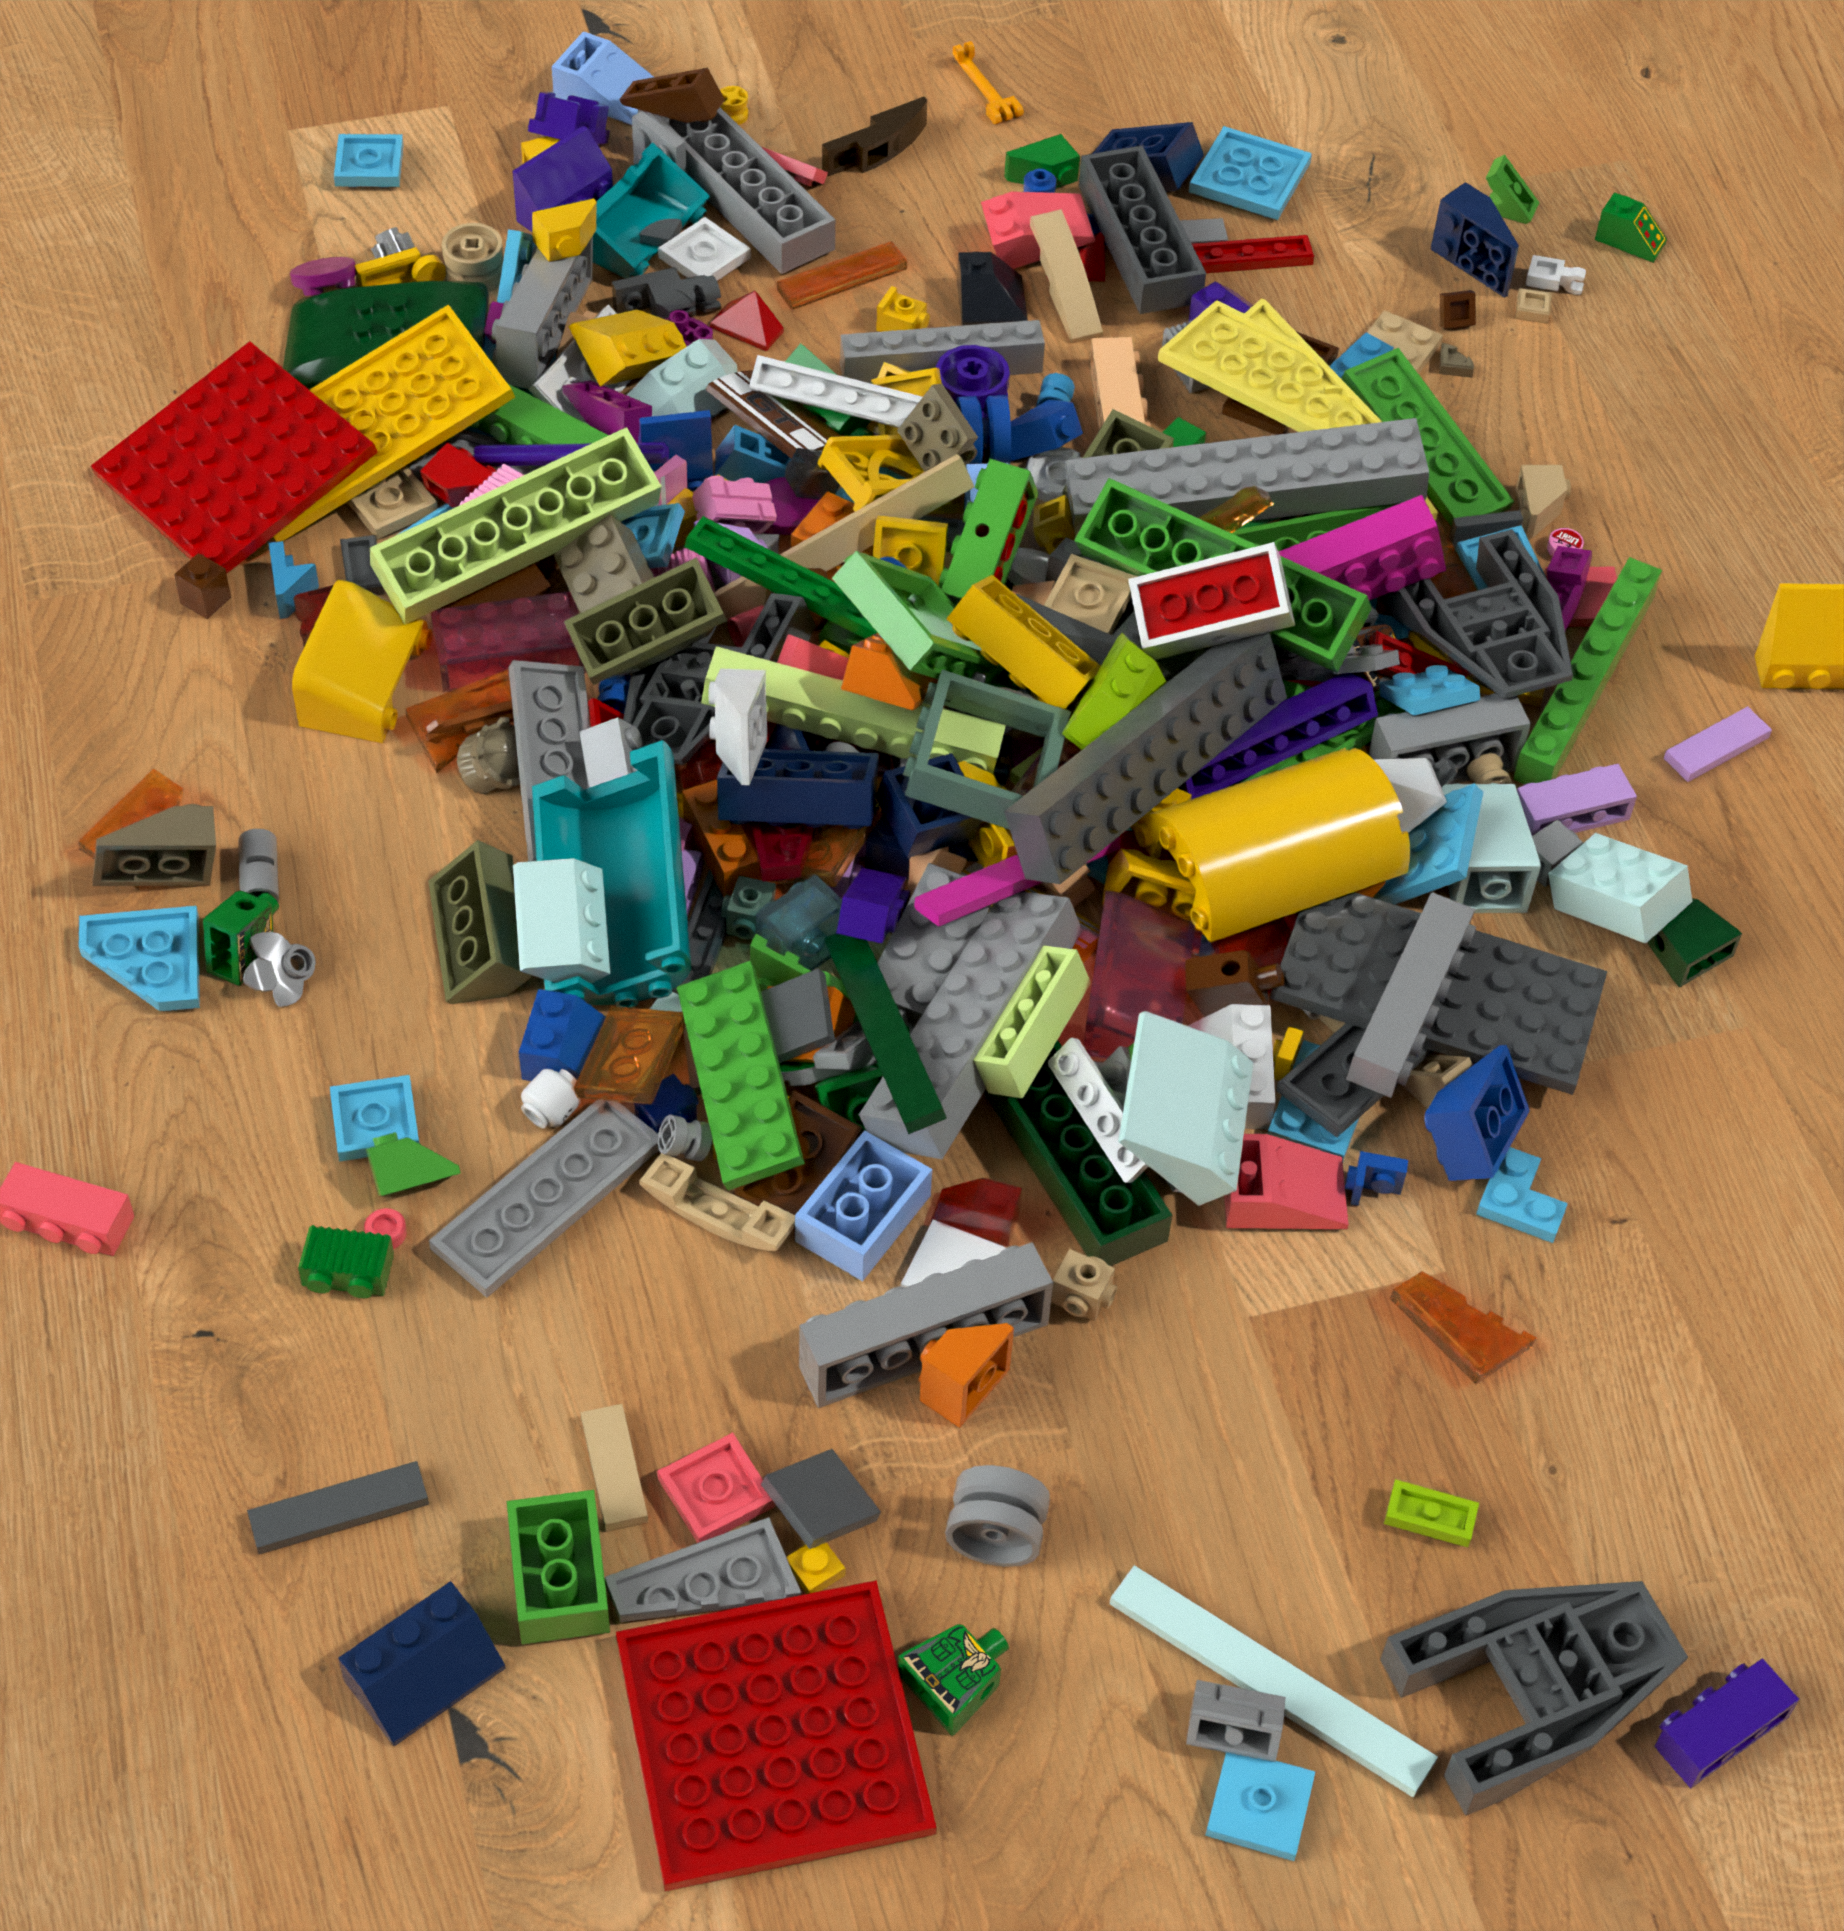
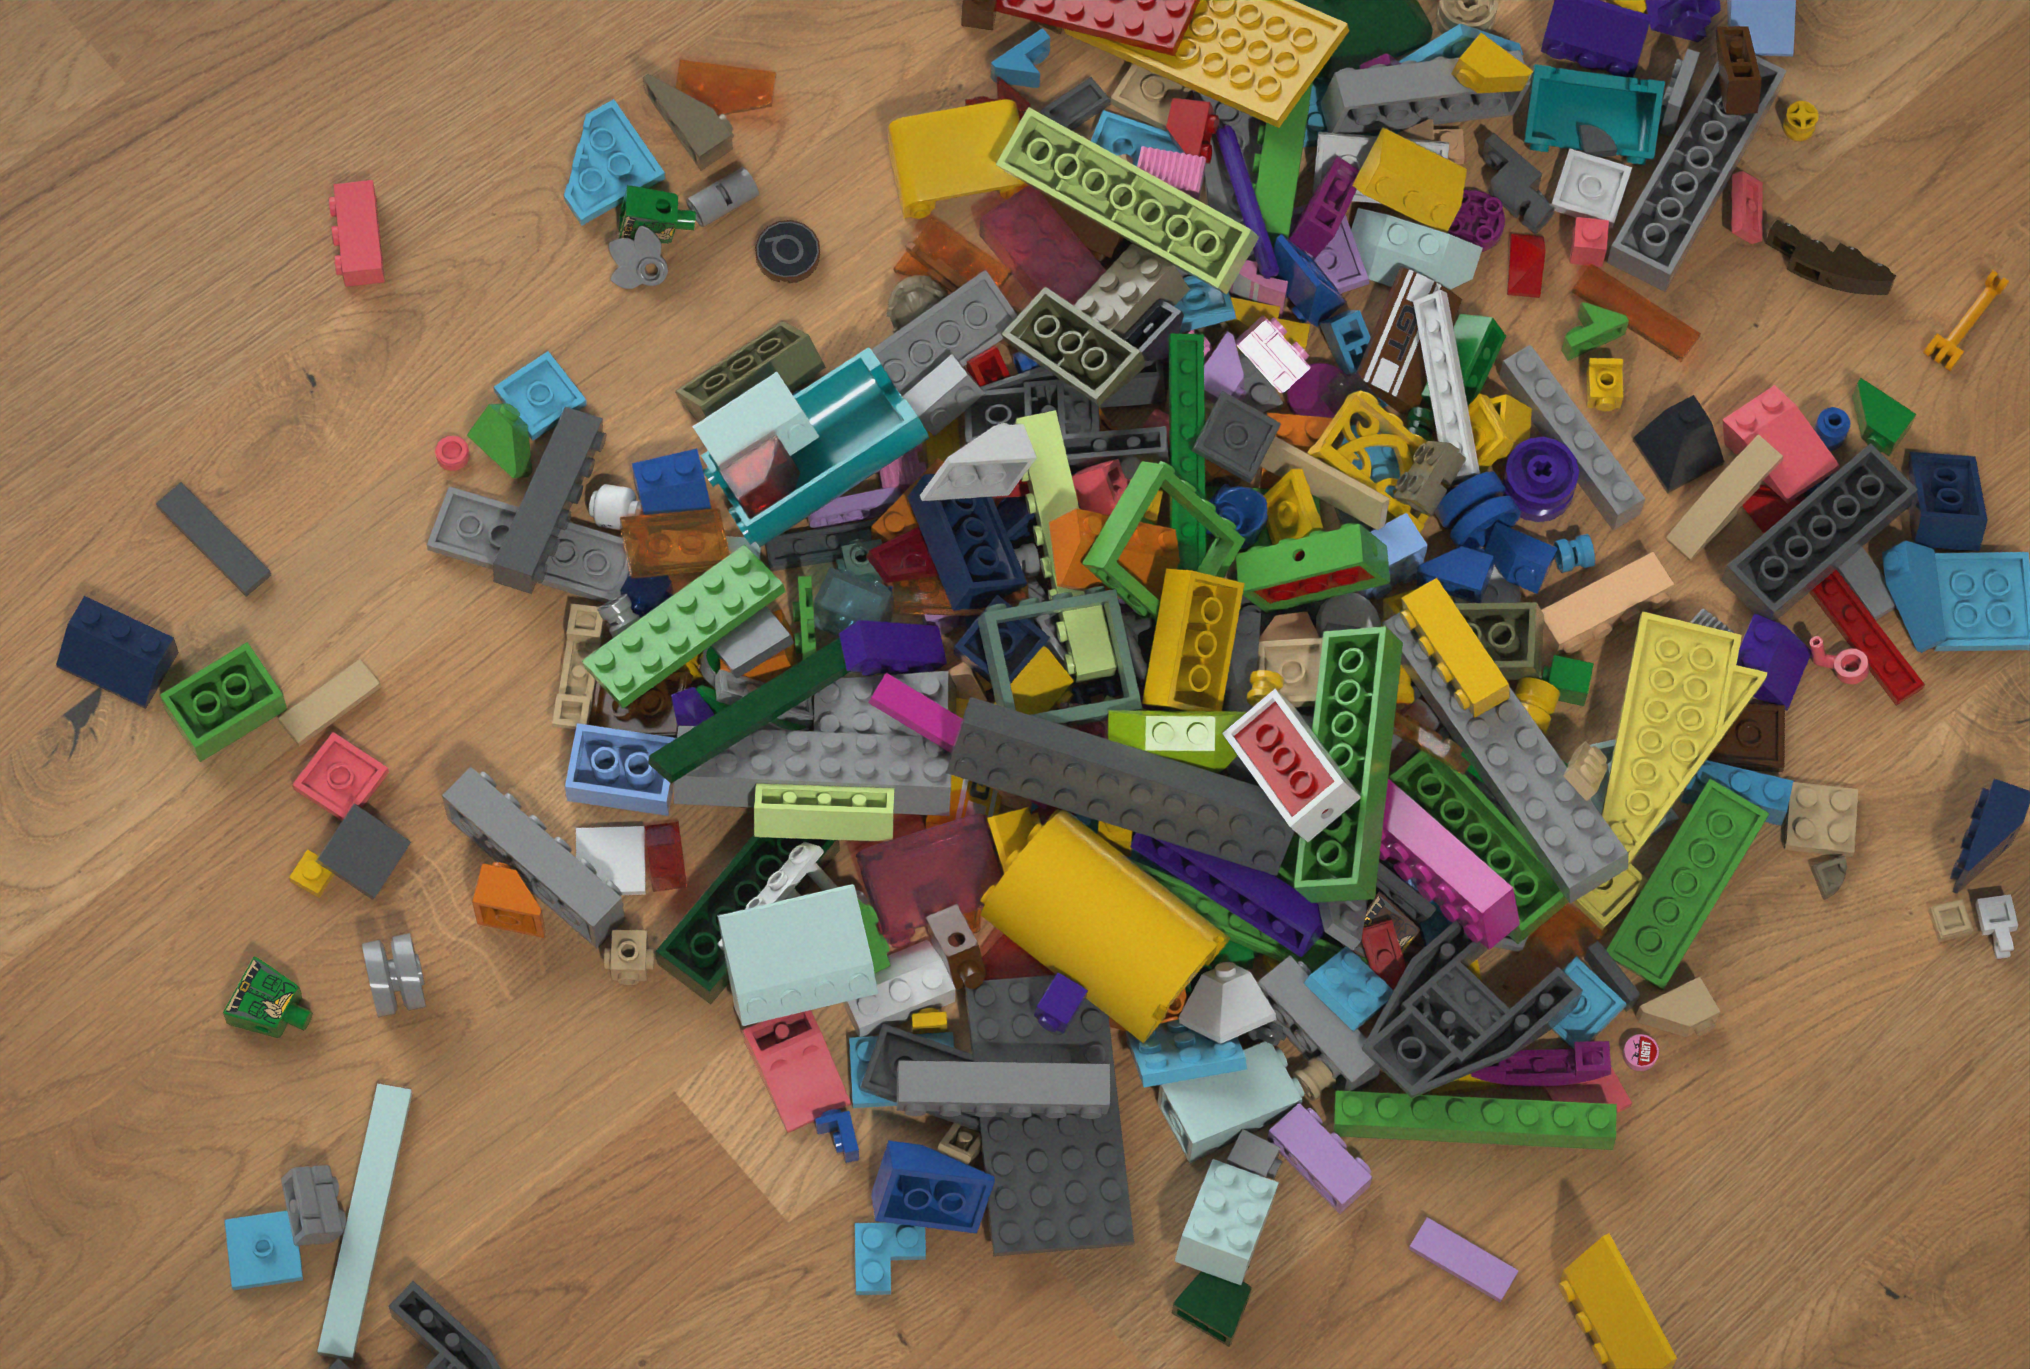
camera: 65 degrees right, 15 degrees up
(346, 1261) = (406, 441): green brick -> none
(355, 845) = (787, 251): none -> black tile
(513, 1146) = (548, 501): none -> dark grey brick
(623, 934) = (762, 476): none -> clear red slope
(659, 553) = (1153, 329): none -> black slope
(708, 1576) = (271, 807): light grey wing -> none
(758, 269) = (1589, 241): none -> coral brick
(773, 1735) = (169, 902): red plate -> none
(815, 543) = (1236, 437): none -> dark grey tile
(841, 300) = (1599, 328): none -> bright green slope
(843, 1102) = (690, 707): none -> dark purple slope
(1044, 461) = (1461, 572): none -> blue slope
(1104, 612) = (1262, 684): none -> yellow wheel
(1145, 455) = (1455, 648): none -> yellow brick
(1227, 201) = (1915, 589): none -> dark azure slope
(1265, 271) = (1842, 662): none -> coral plate
(1325, 417) = (1586, 770): none -> tan plate
(1341, 912) = (1060, 1004): none -> dark purple brick
(1431, 1513) = (553, 1283): lime plate -> none
(1457, 309) = (1894, 852): reddish brown tile -> none
(1466, 1335) = (731, 1250): clear orange wing -> none

